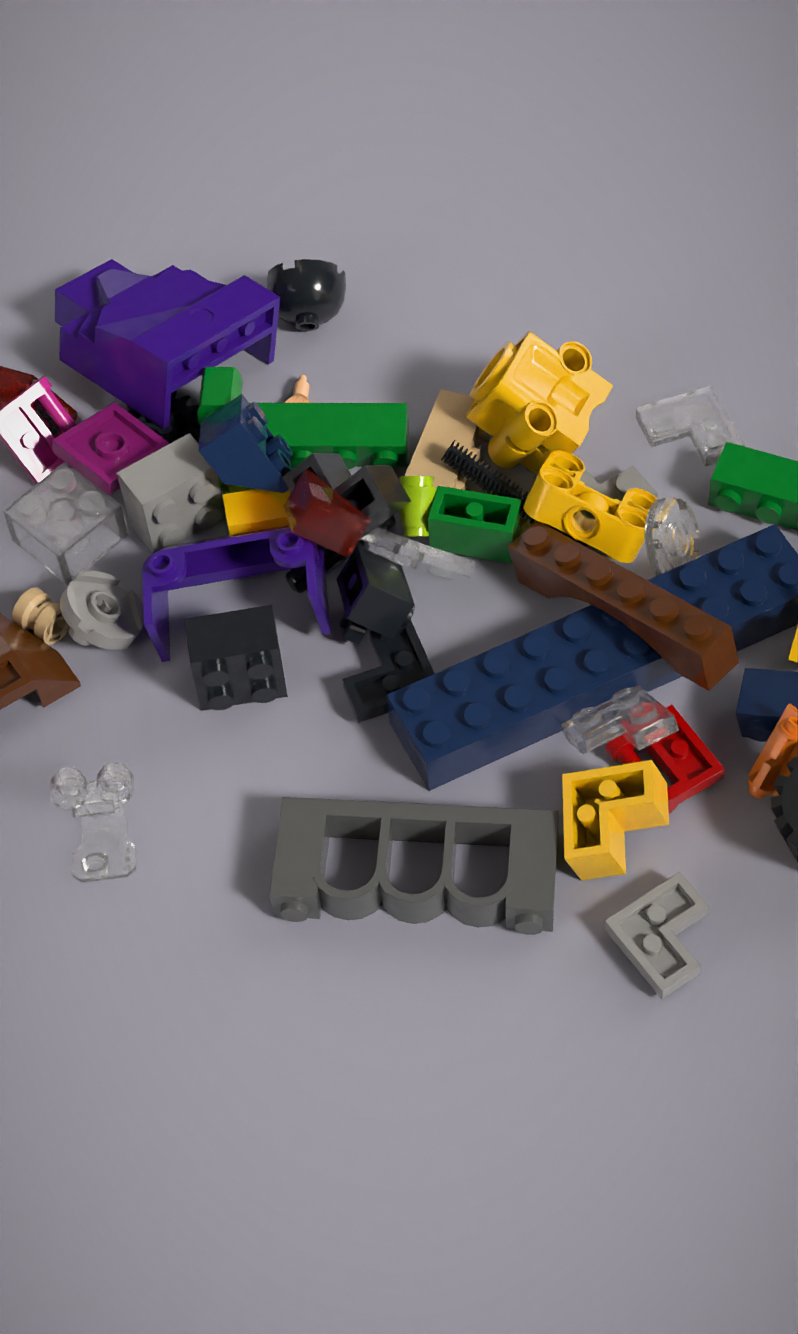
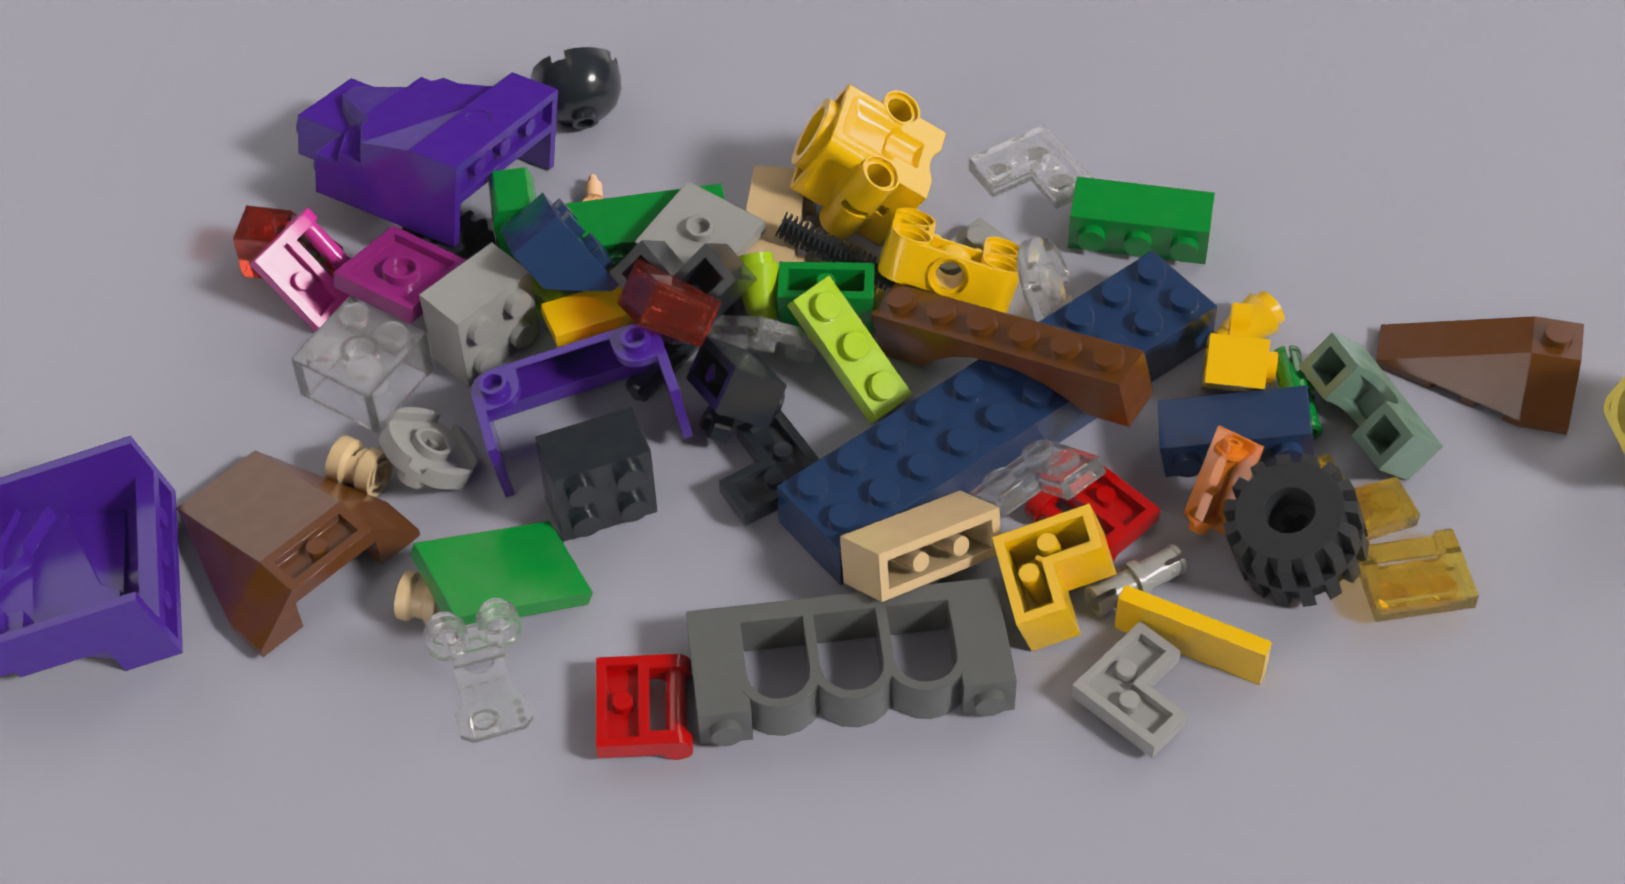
camera: 15 degrees left, 5 degrees down
(67, 744) = (414, 598): none -> tan wheel
(143, 731) = (513, 563): none -> green tile
(215, 873) = (624, 706): none -> red plate
(379, 438) = (703, 218): none -> light grey plate
(482, 576) = (849, 349): none -> lime plate
(498, 770) = (920, 545): none -> tan brick
(688, 831) = (1139, 575): none -> light grey pin
(726, 892) = (1196, 634): none -> yellow tile

